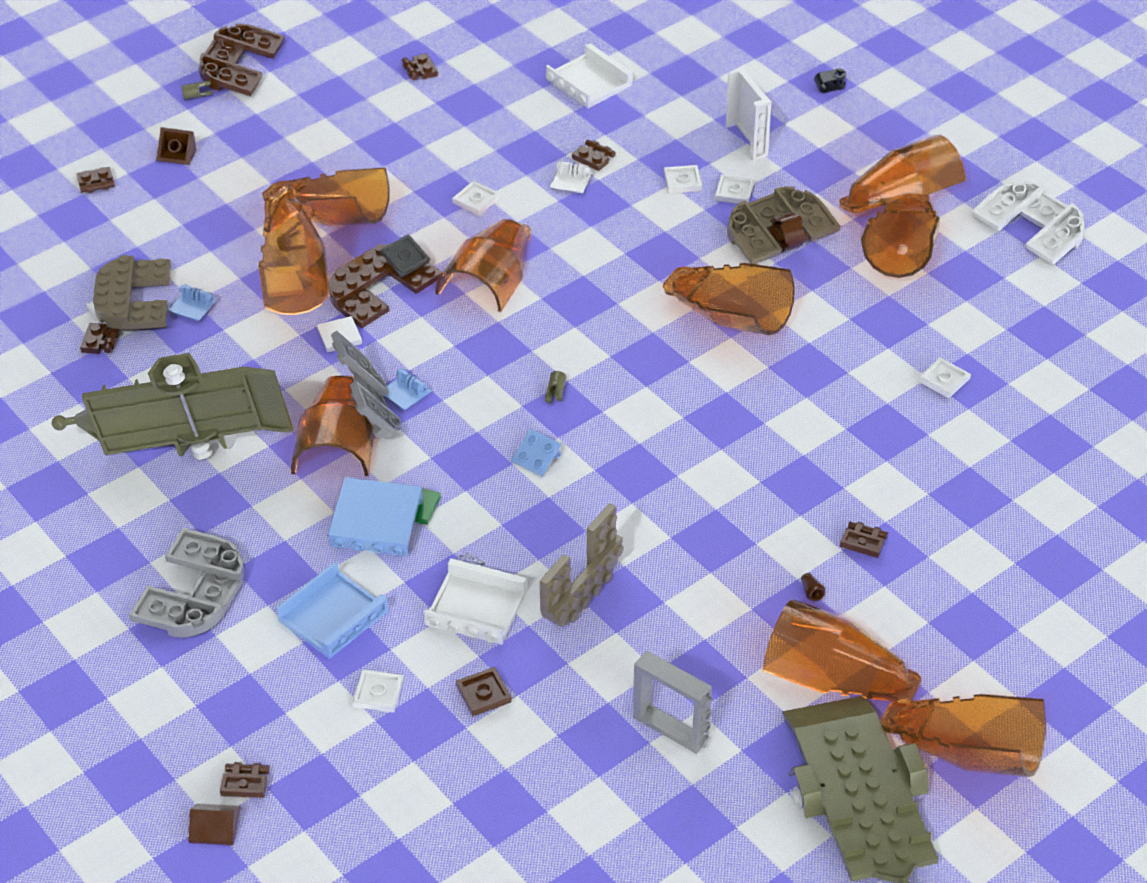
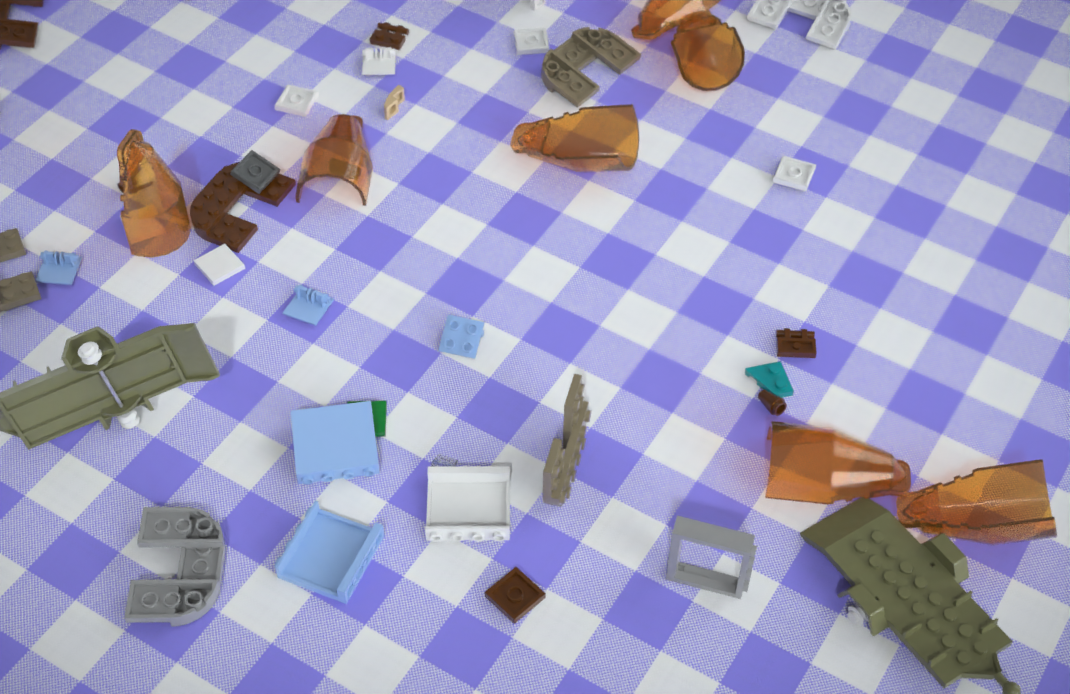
camera: 20 degrees left, 5 degrees up
(335, 422) = (254, 354): clear orange windscreen -> none
(342, 198) = (171, 127): clear orange windscreen -> none
(367, 388) = (277, 314): light grey plate -> none
(378, 691) = (410, 624): white tile -> none
(555, 386) = (451, 266): olive hinge -> none
(568, 218) = (392, 102): none -> tan slope
(682, 179) = (480, 41): white tile -> none
(788, 231) = (600, 68): reddish brown brick -> none
(823, 565) = (771, 378): none -> teal wing

